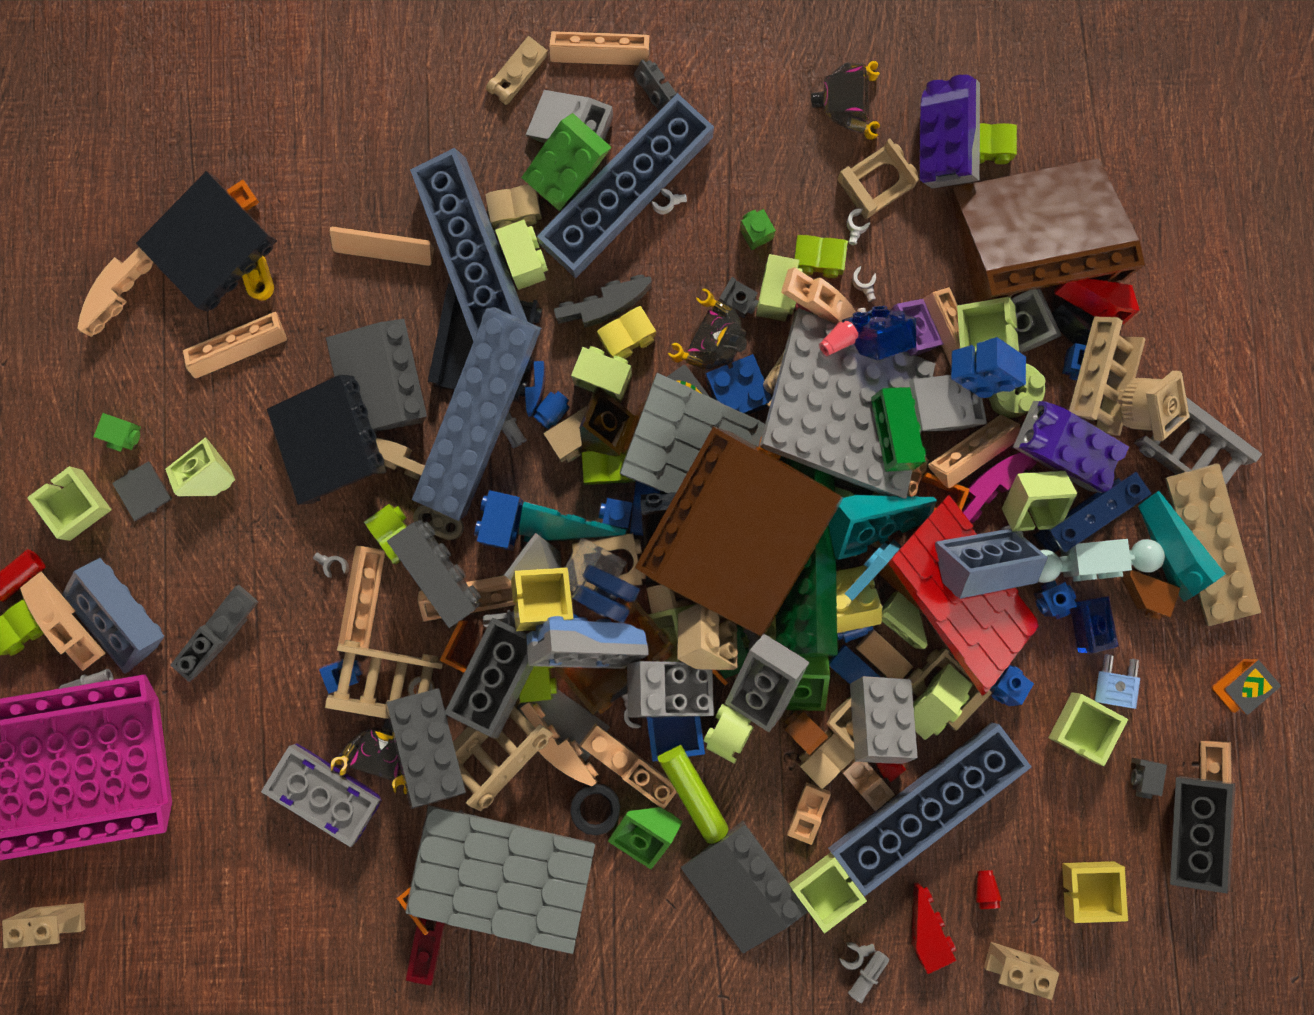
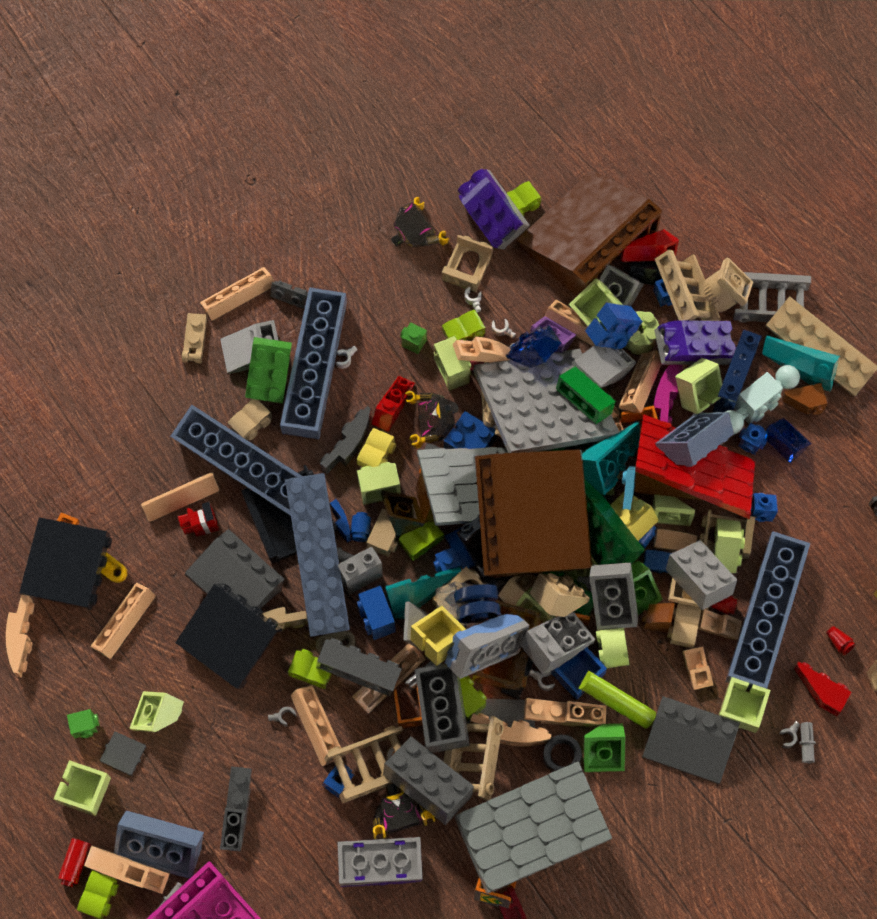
camera: 35 degrees left, 15 degrees down
(387, 292) = (200, 521): none -> red hips
(513, 461) = (360, 570): none -> light grey panel
(519, 250) = (277, 442): yellowish green piece -> none
(682, 290) = (392, 403): none -> red slope
(741, 307) = (426, 380): dark grey brick -> none
(839, 338) = (512, 364): coral cone -> none
(1088, 728) = (828, 501): yellowish green piece -> none
(1118, 688) = (829, 467): light blue piece -> none

